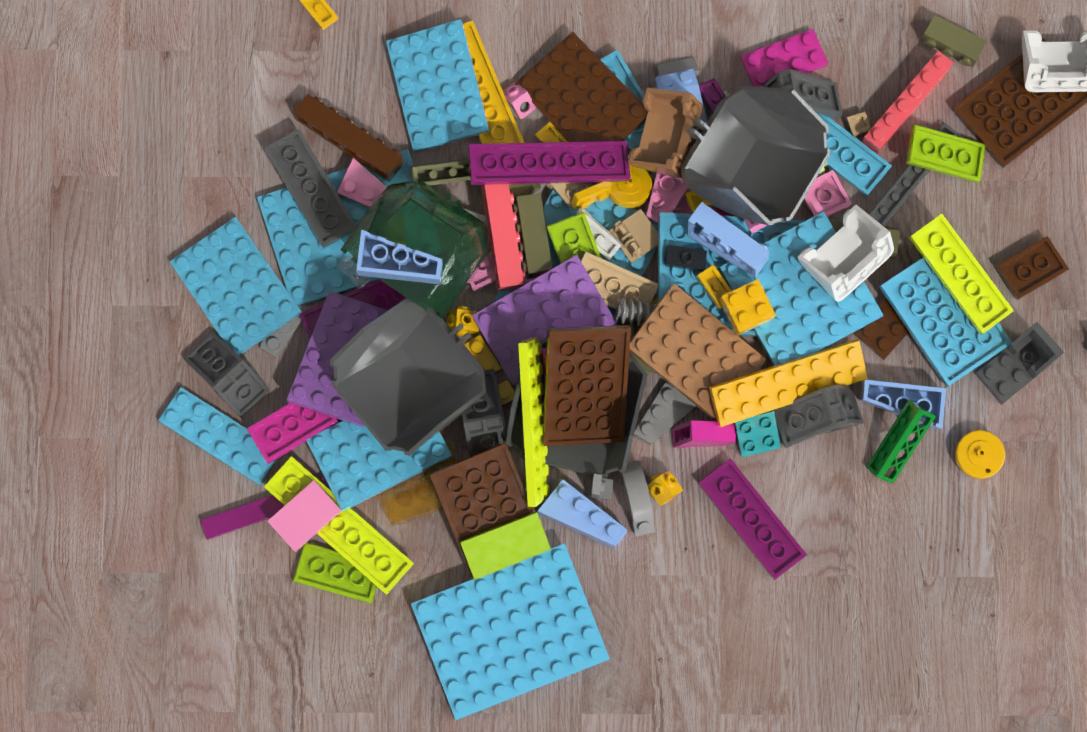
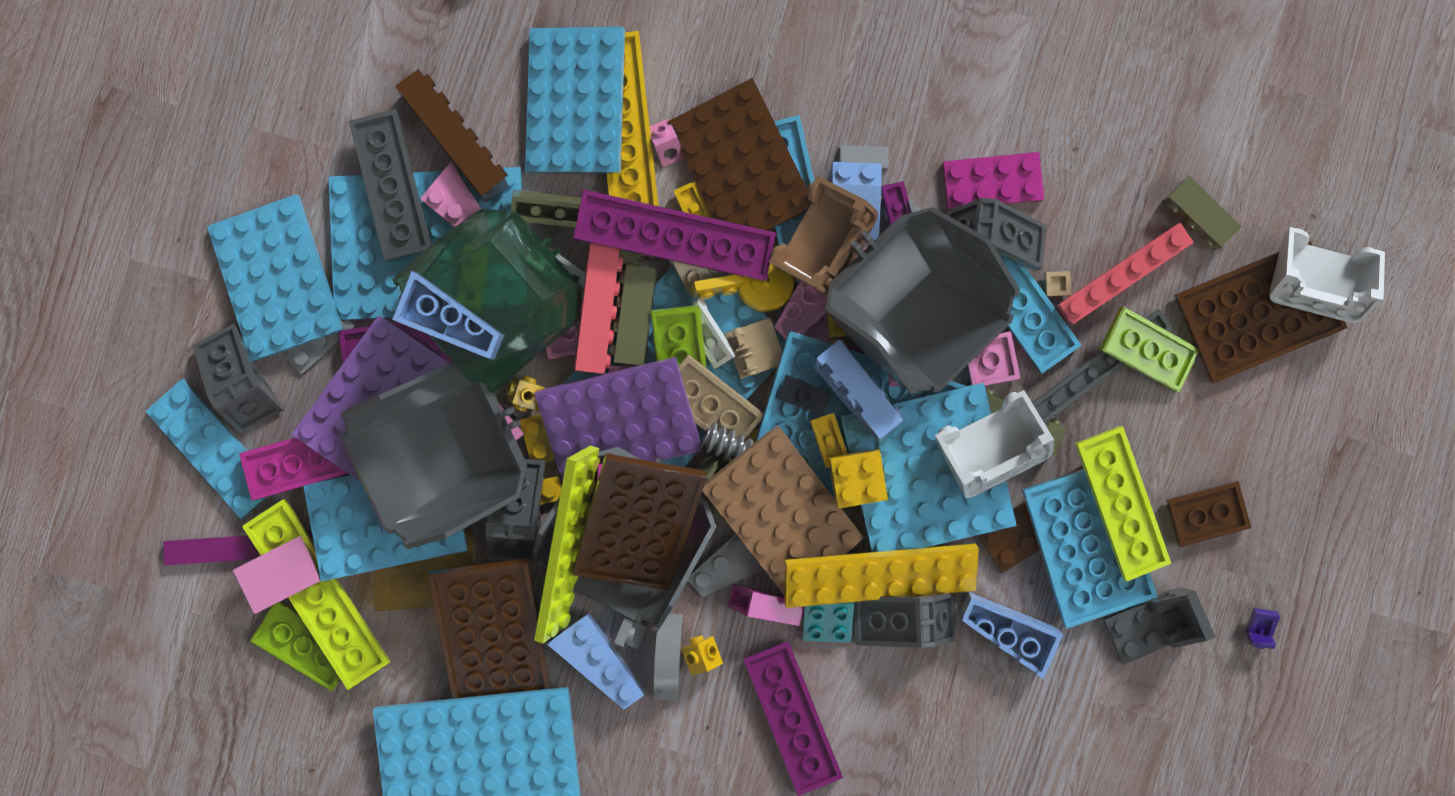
camera: 20 degrees right, 10 degrees up
(505, 545) = (498, 673): lime tile -> none
(896, 441) = (987, 679): green fence -> none
(979, 454) = (1078, 717): yellow wheel -> none

